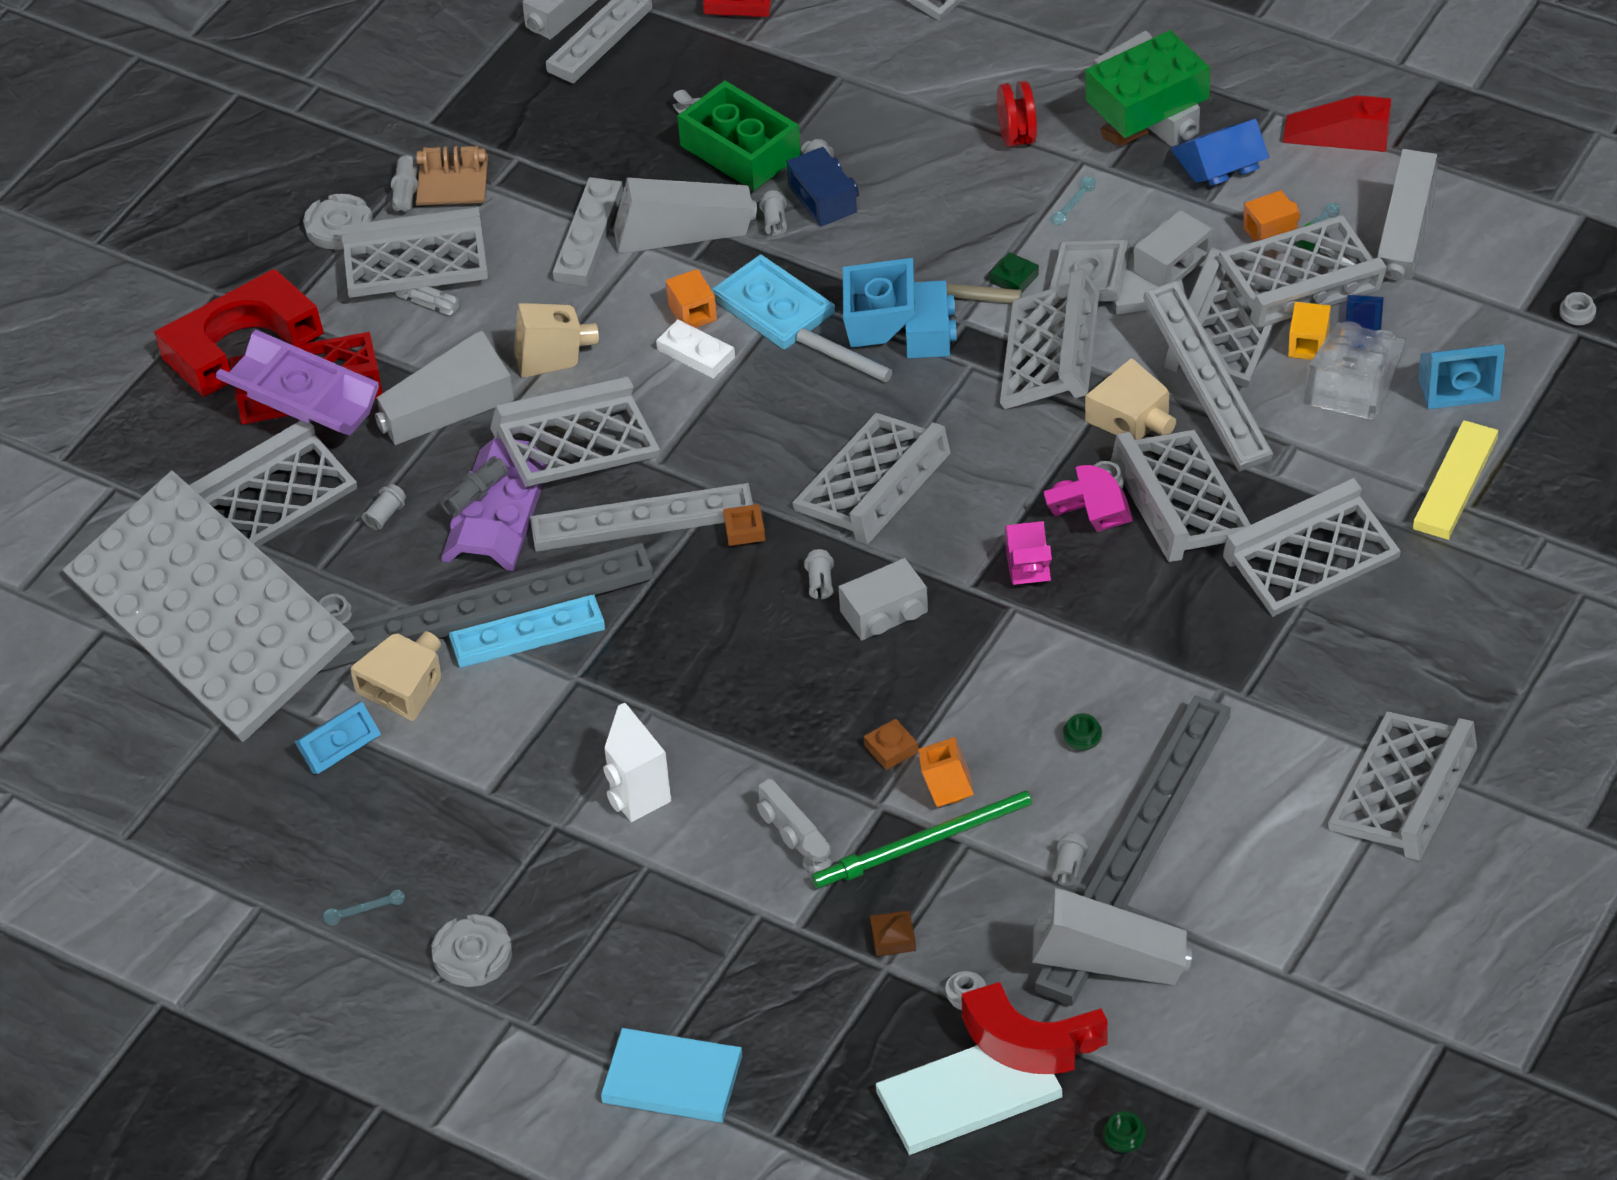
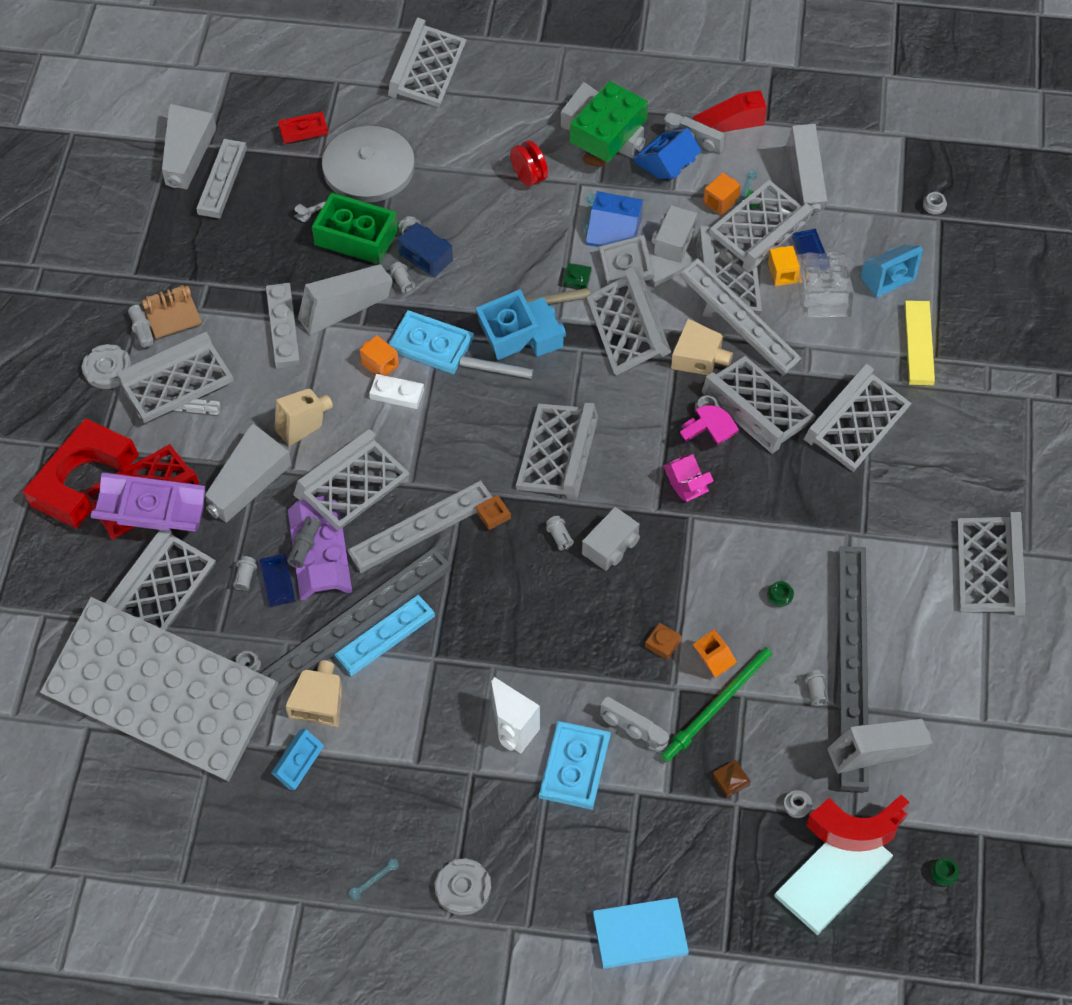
camera: 25 degrees left, 10 degrees up
(422, 529) = (277, 580): none -> clear blue tile
(693, 855) = (575, 765): none -> medium azure tile
(804, 65) = (368, 163): none -> light grey dish
(1100, 210) = (613, 219): none -> slope
(1277, 134) = (705, 136): none -> light grey hinge

